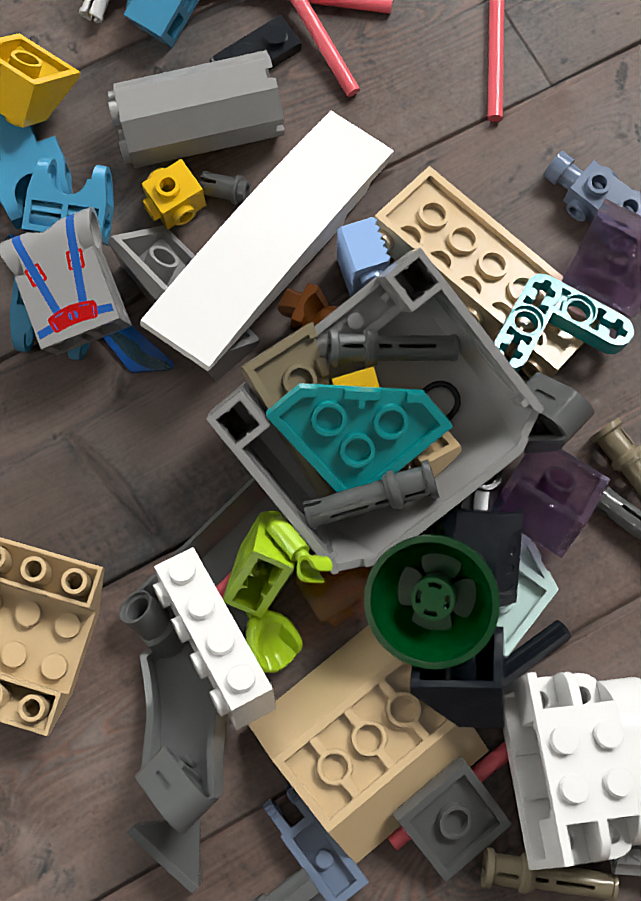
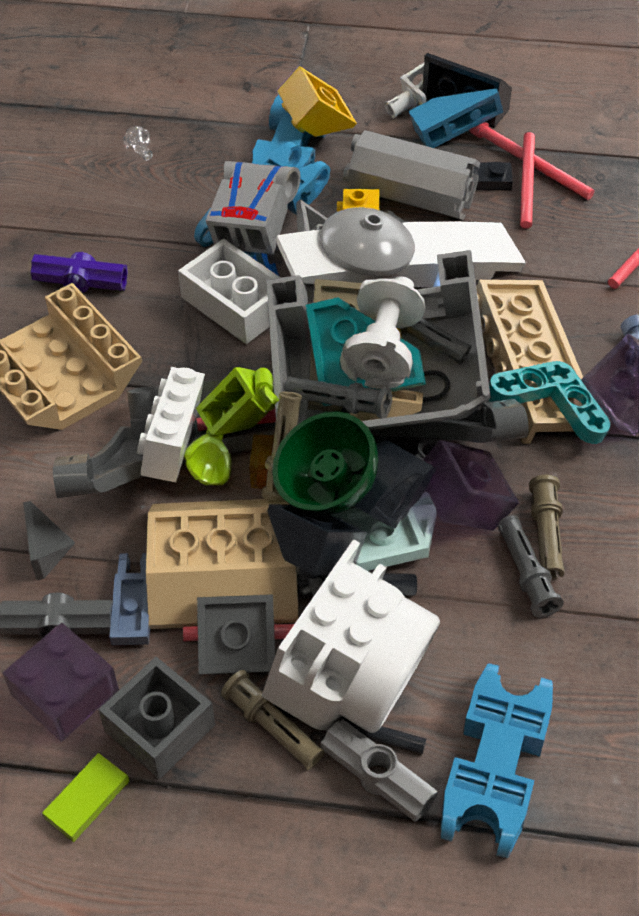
camera: 35 degrees right, 25 degrees down
(123, 400) = (228, 289): none -> white brick
(236, 274) = (368, 241): none -> light grey dish
(347, 563) = (286, 420): none -> dark tan pin
(392, 419) = (378, 352): none -> white piece

